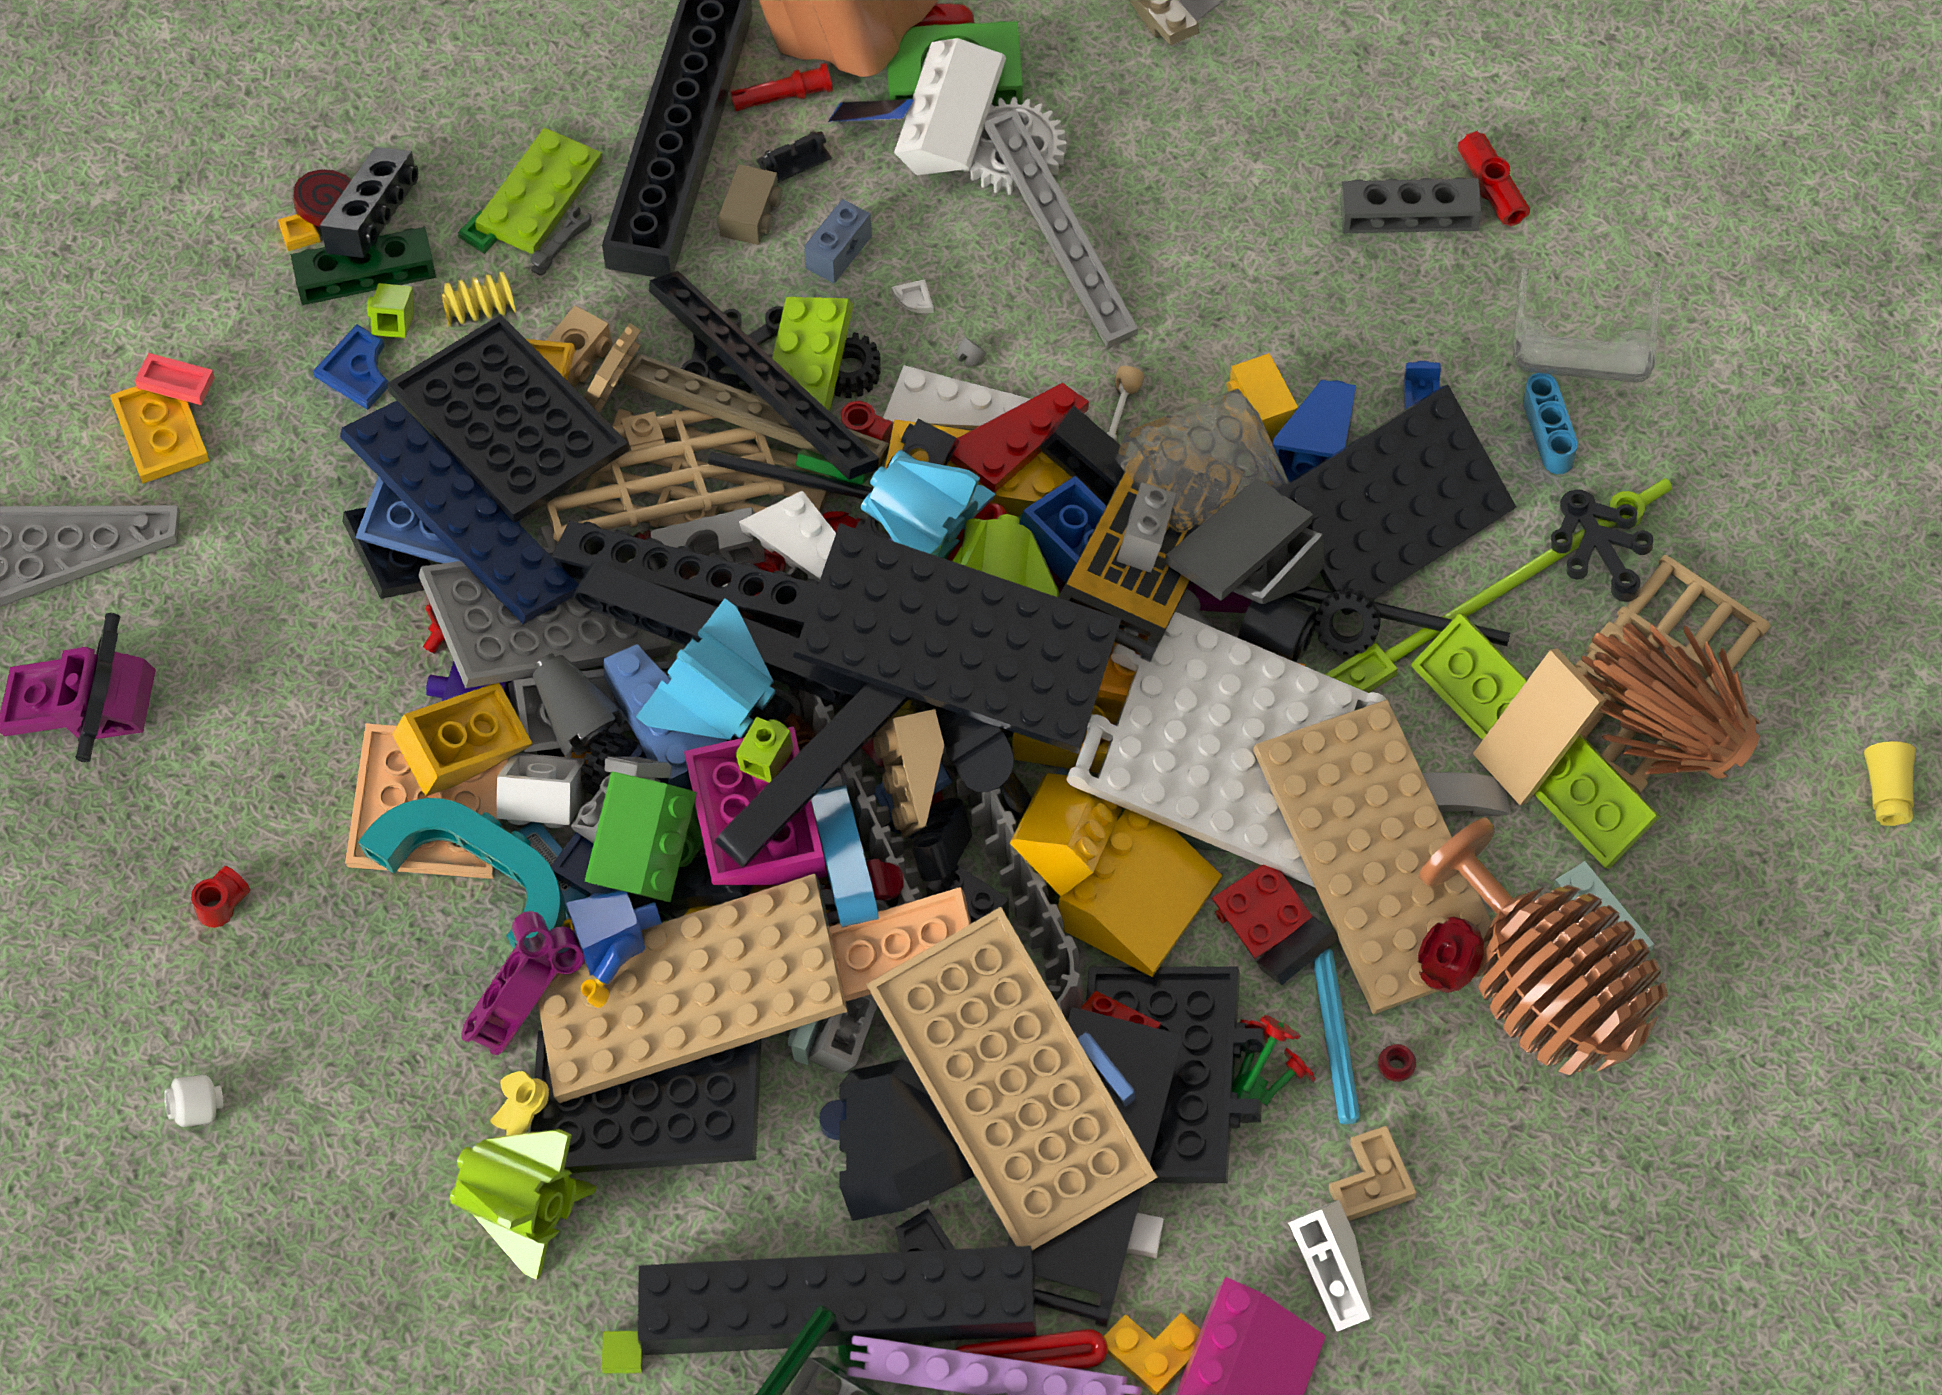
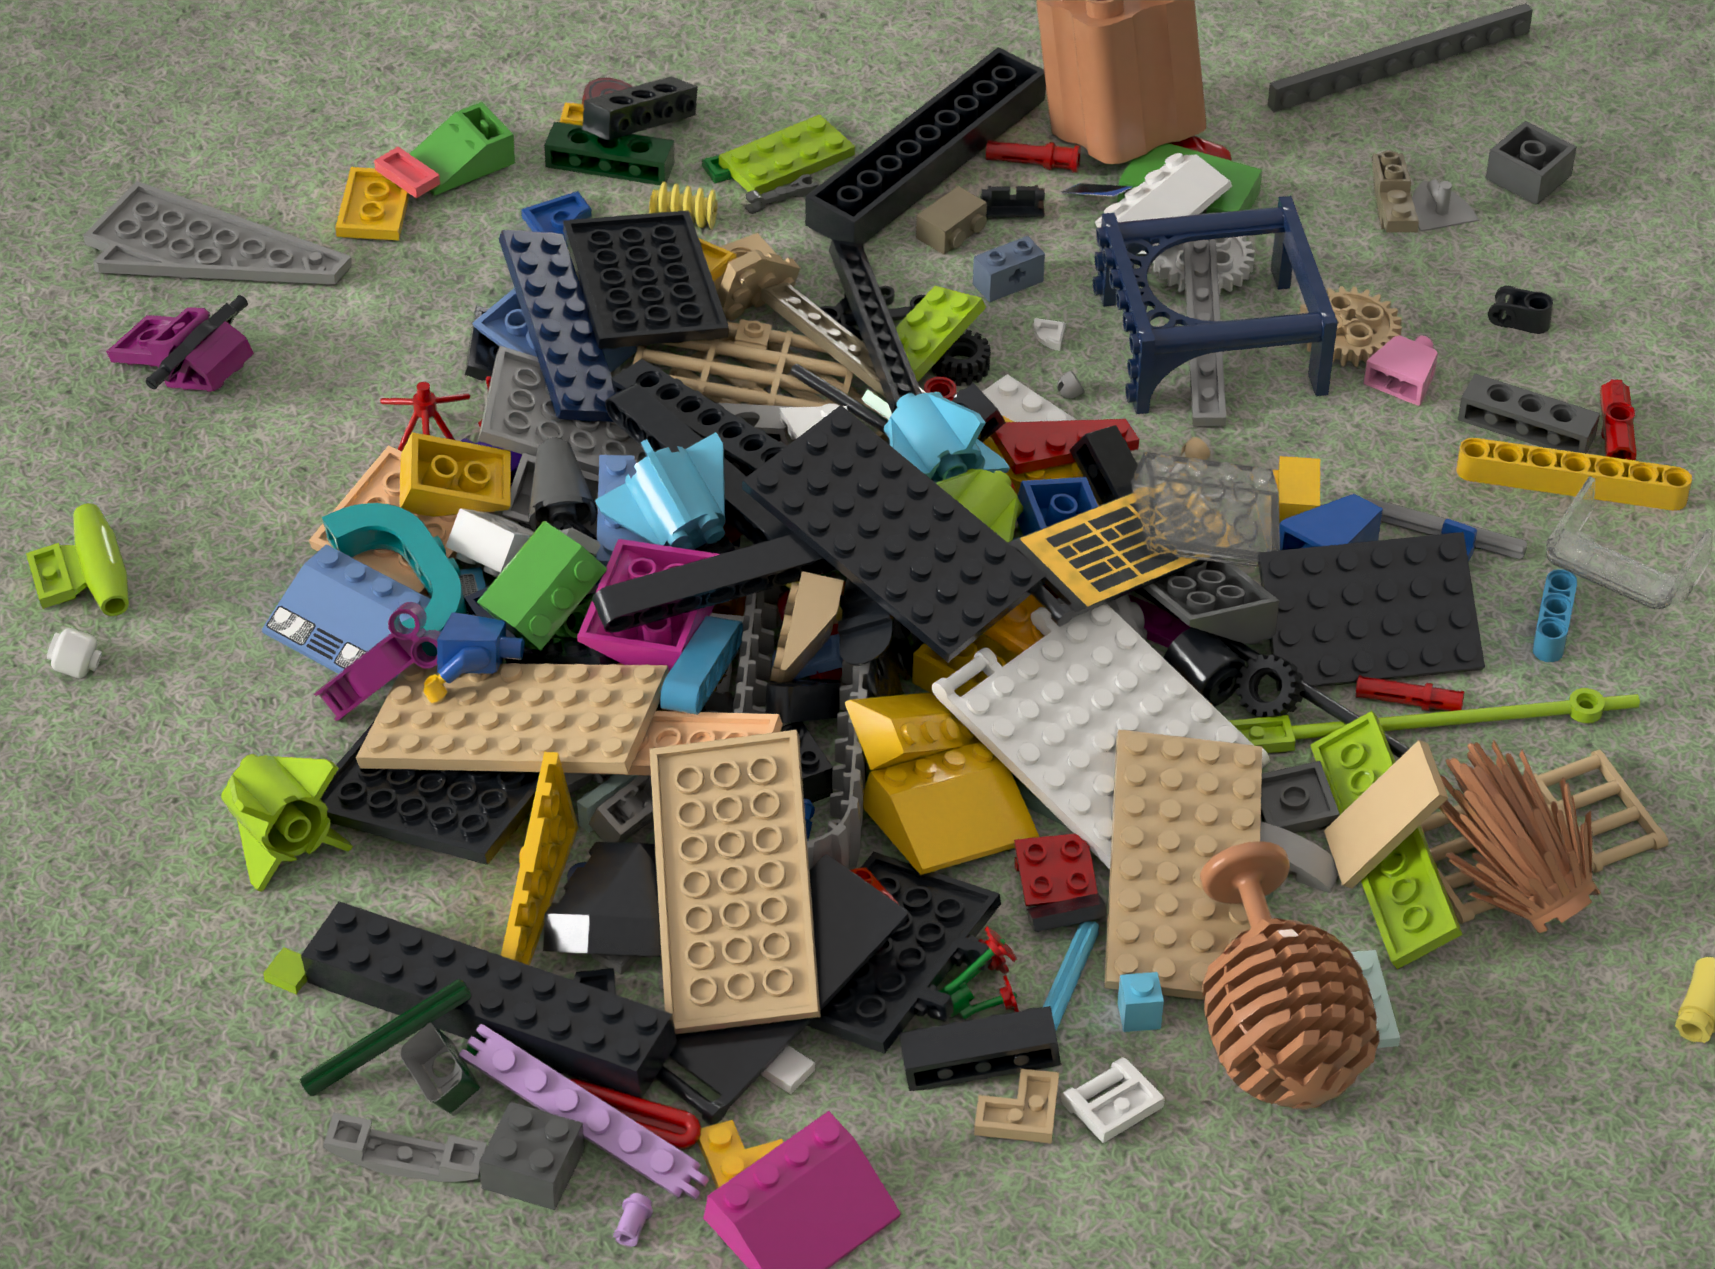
camera: 25 degrees right, 15 degrees down
(141, 990) = (92, 563): none -> lime plate
(214, 322) = (467, 147): none -> bright green slope
(224, 887) = (191, 525): red piece -> none
(375, 663) = (424, 406): none -> red plant
(391, 310) = (610, 188): lime brick -> none
(436, 932) = (337, 609): none -> medium blue slope
(524, 1100) = (338, 749): light yellow plate -> none
(764, 749) = (679, 548): lime brick -> none
(801, 1140) = (541, 860): none -> yellow wing
(885, 878) = (723, 692): dark red plate -> none
(1055, 289) = (1166, 347): none -> dark blue arch
(1107, 1070) = (823, 908): medium blue tile -> none
(1146, 527) = (1117, 526): light grey brick -> none
(1184, 160) = (1362, 324): none -> tan gear
(1238, 539) = (1199, 572): dark grey tile -> none
(1269, 198) = (1403, 368): none -> bright pink torso
(1306, 1135) = (979, 1048): none -> black brick
(1334, 1263) = (941, 1151): white slope -> none
(1340, 82) = (1524, 310): none -> black piece
(1395, 365) = (1432, 525): none -> light grey axle
(1401, 1053) = (1102, 1025): dark red plate -> none
(1416, 1016) = (1140, 1001): none -> medium azure brick
(1436, 729) = (1298, 798): none -> dark grey plate
(1451, 954) = (1193, 953): dark red tile -> none
(1455, 1133) = (1117, 1108): none -> white plate
(1478, 565) = (1409, 694): none -> red pin
(1535, 242) = (1567, 472): none -> yellow beam
(1601, 539) = (1542, 687): black plant -> none

